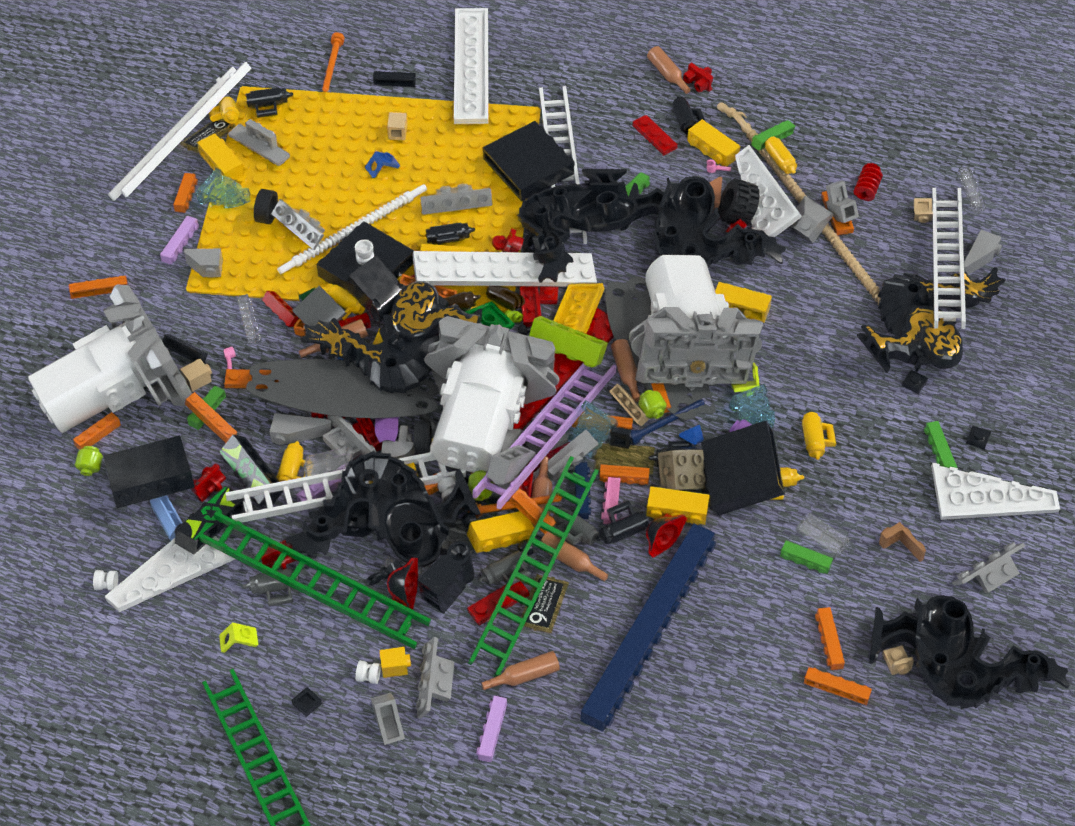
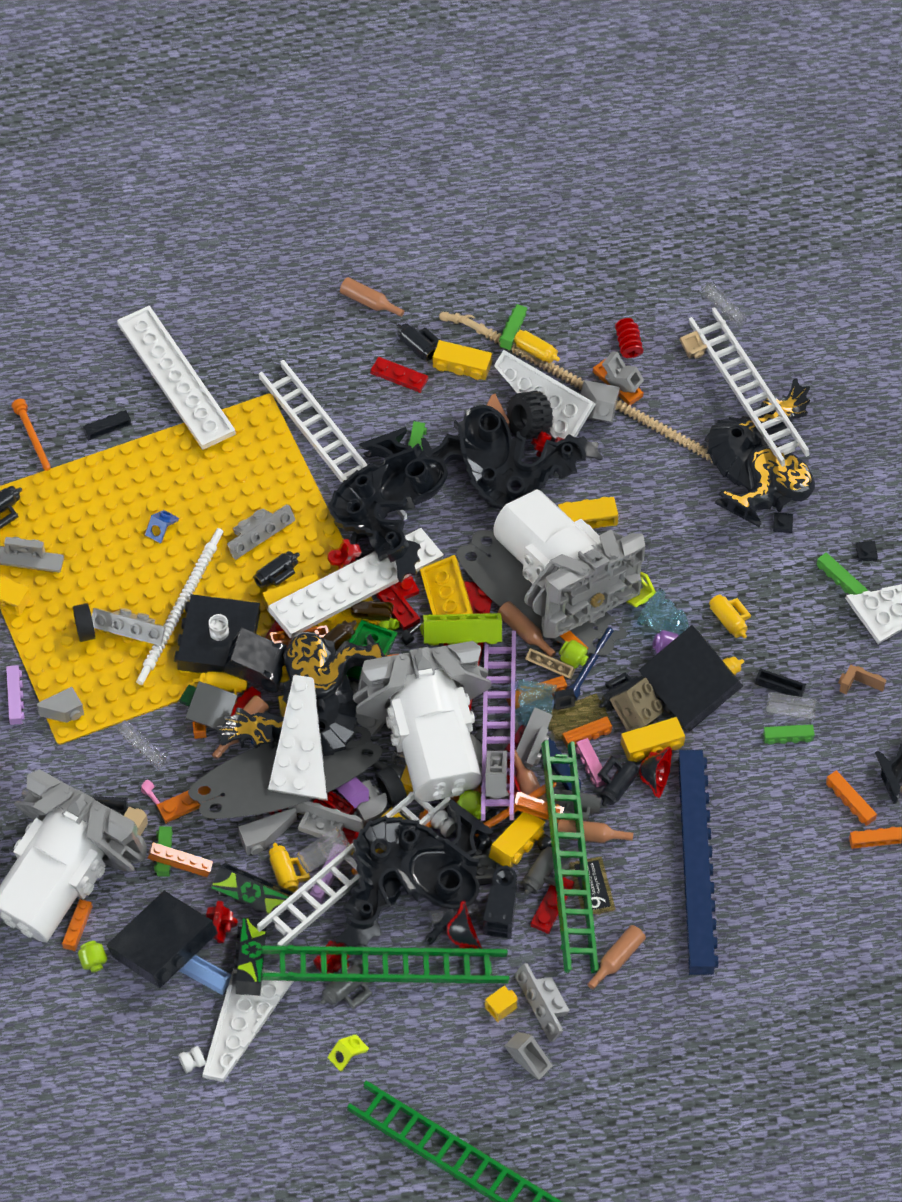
camera: 30 degrees left, 5 degrees up
(222, 191) = (27, 624): clear light blue piece -> none
(280, 308) = (166, 719): red piece -> none
(306, 701) = (448, 1076): black plate -> none
(358, 372) = (299, 753): none -> white wing
(368, 672) = (484, 1023): white wheel -> none
(397, 126) = (150, 477): tan brick -> none
(491, 729) = (621, 1019): lavender piece -> none
(528, 160) = (302, 458): black brick -> none
(693, 435) = (623, 666): blue slope -> none
(701, 77) = (406, 292): red hips -> none
(712, 167) = (477, 384): bright pink hand -> none
(825, 511) = (780, 683): none -> black piece
(982, 251) = (769, 362): light grey slope -> none

